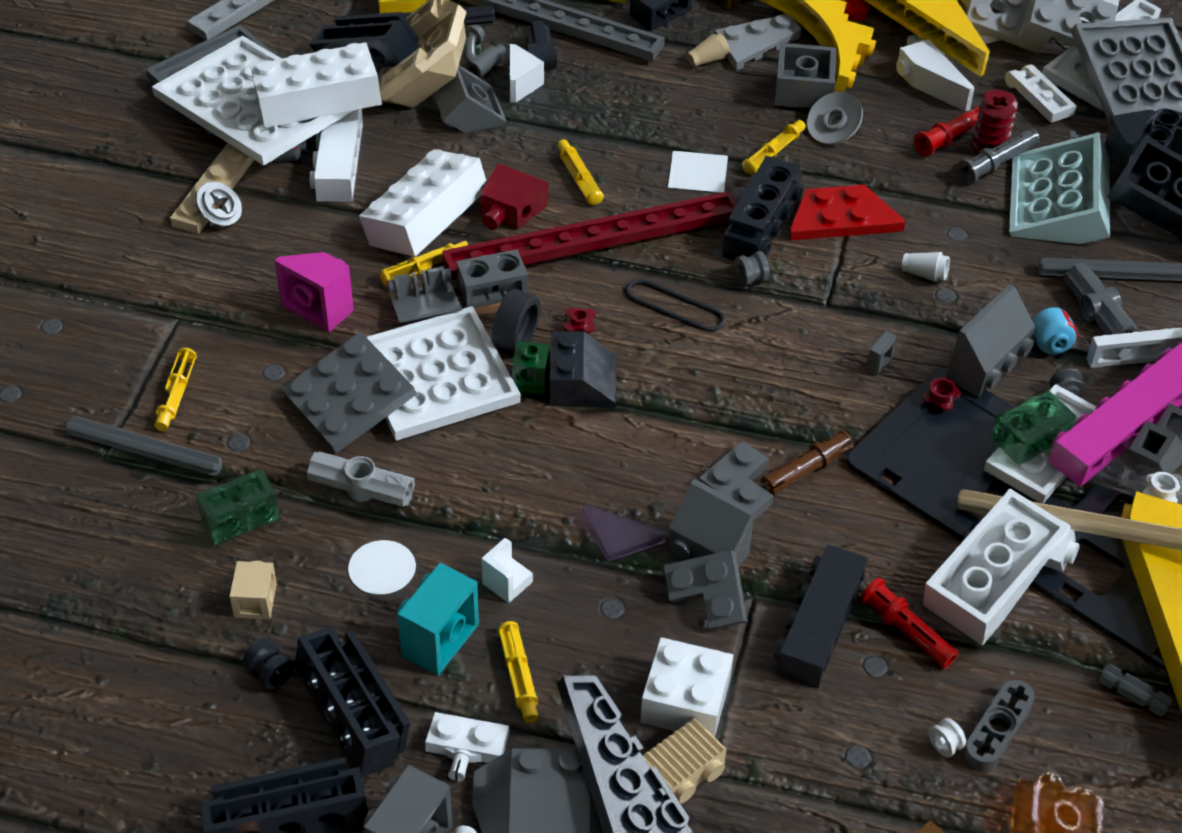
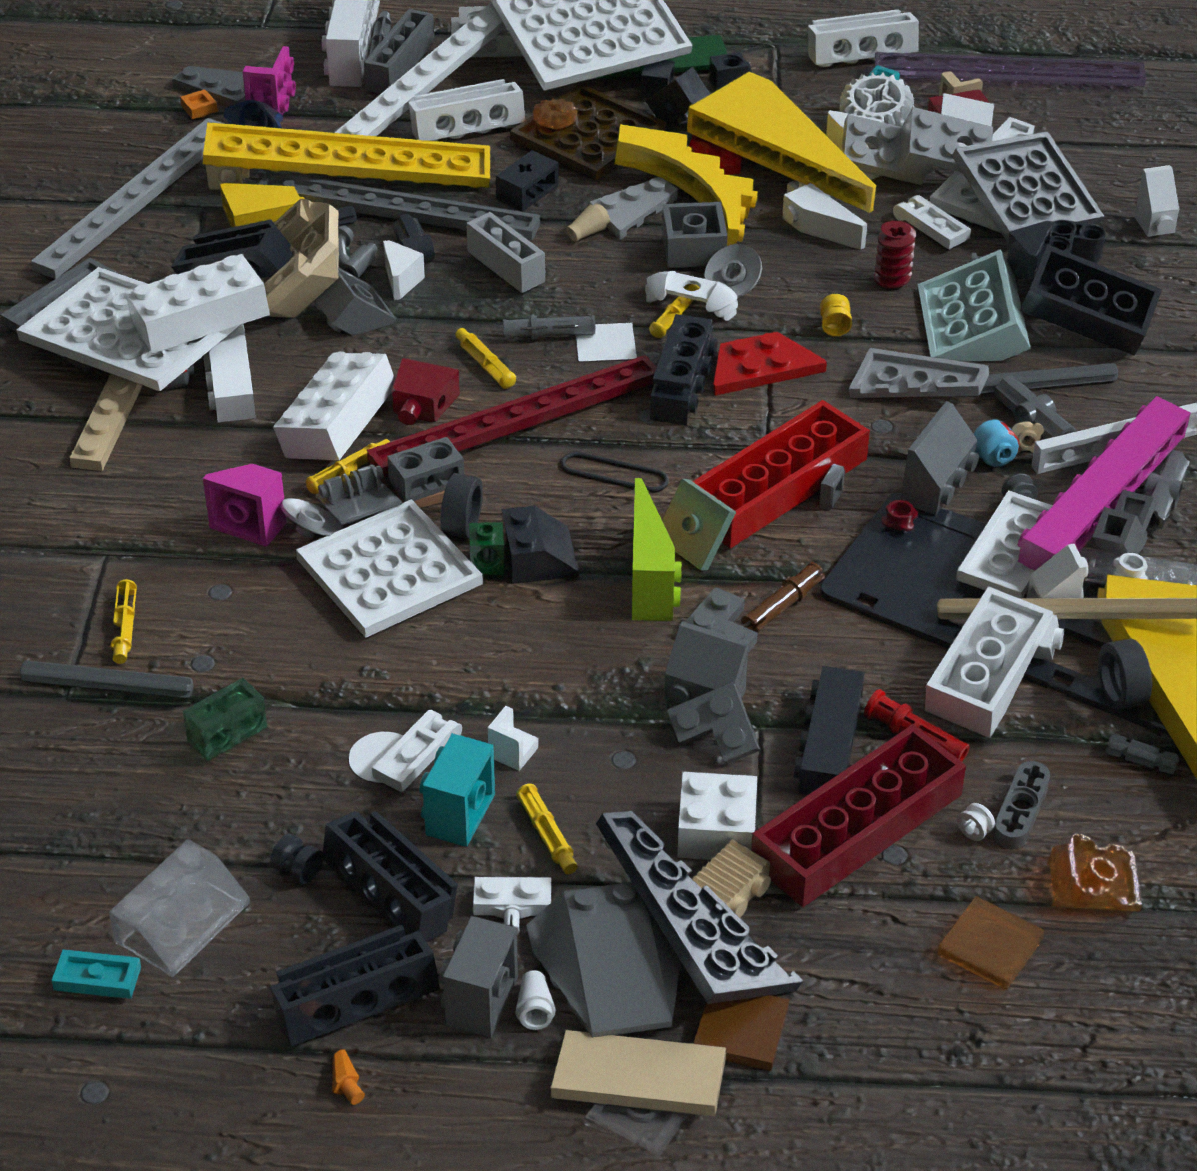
camera: 10 degrees left, 5 degrees down
(49, 753) = (96, 974): none -> teal plate
(143, 697) = (178, 908): none -> clear slope
(217, 192) = (112, 426): gear -> none
(253, 590) = (261, 794): tan brick -> none
(349, 392) = (307, 597): dark grey plate -> none
(360, 478) = (341, 676): light grey piece -> none
(372, 310) = (310, 518): none -> light grey dish
(407, 568) = (414, 750): none -> white plate
(580, 320) = (523, 496): dark red plate -> none
(621, 535) = (615, 691): clear purple tile -> none
(622, 70) = (506, 252): none -> light grey brick
(680, 152) = (585, 324): none -> dark grey pin
(683, 407) = (652, 562): none -> lime slope
(736, 373) = (696, 523): none -> sand green plate
(752, 268) = (684, 425): dark grey wheel -> none
(814, 141) = (717, 295): none -> white piece
(827, 331) = (784, 467): none -> red brick
(827, 711) = (858, 814): none -> dark red brick
(924, 175) = (836, 315): none -> yellow wheel
(929, 265) = (857, 399): white cone -> none
(942, 134) = (844, 273): red pin -> none
(989, 159) = (896, 291): dark grey pin -> none
(992, 250) = (912, 375): none -> light grey wing
(1032, 426) = (995, 530): clear green brick -> none
(1086, 487) = (1060, 576): none -> white slope
(1089, 321) = (1027, 429): none -> tan plate
(1132, 603) = (1125, 674): none -> black tyre

